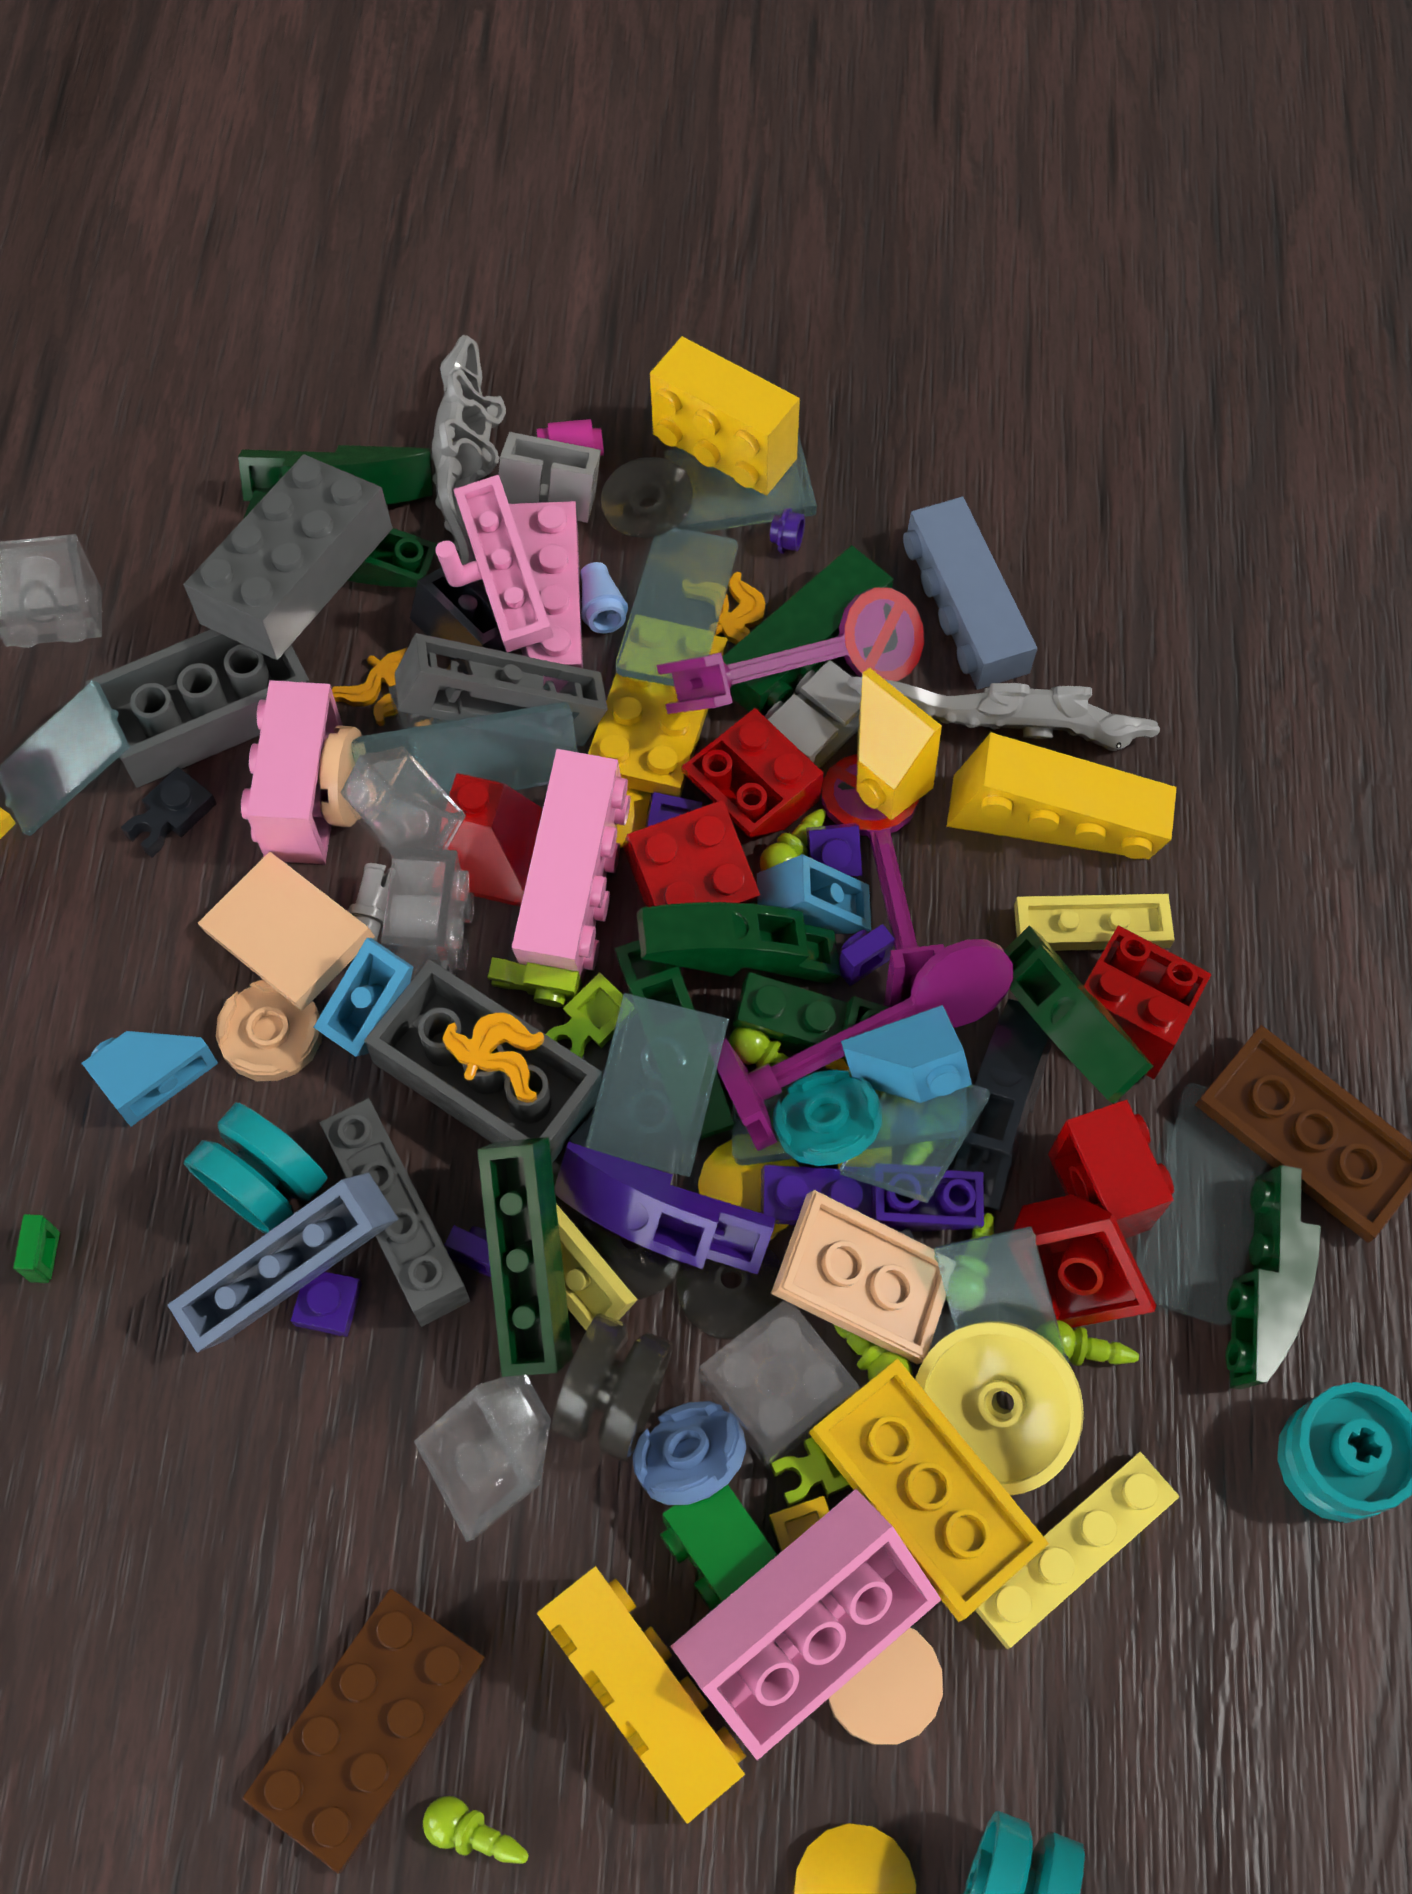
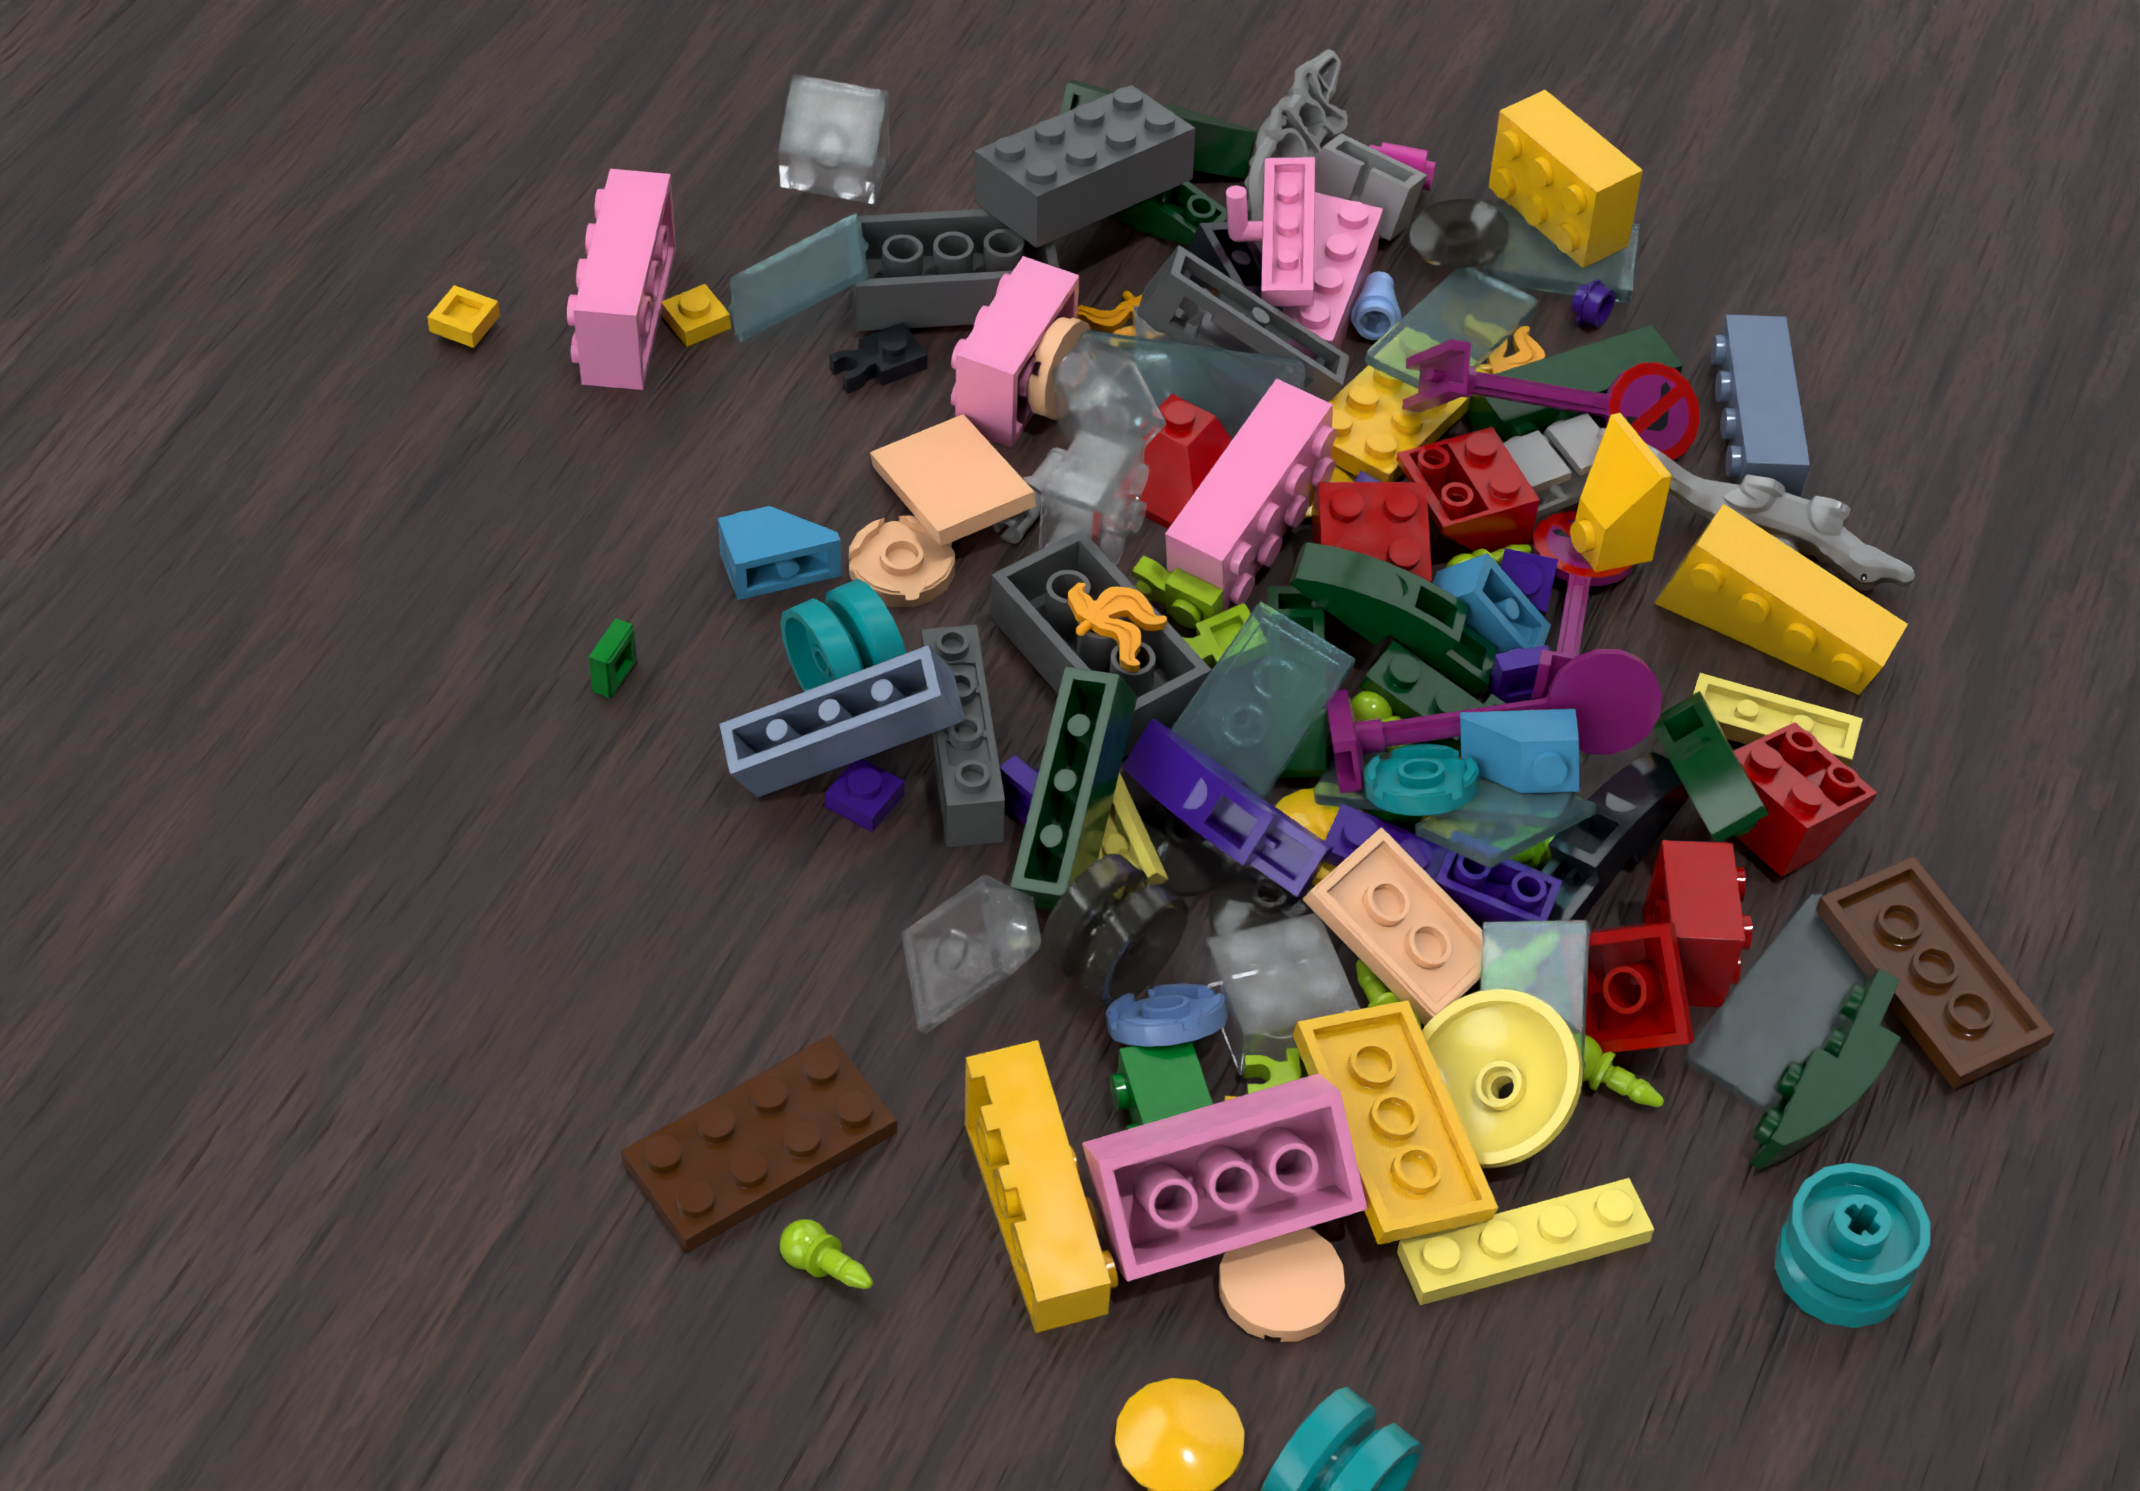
camera: 20 degrees right, 15 degrees down
(364, 996) = (1008, 535): dark azure slope -> none

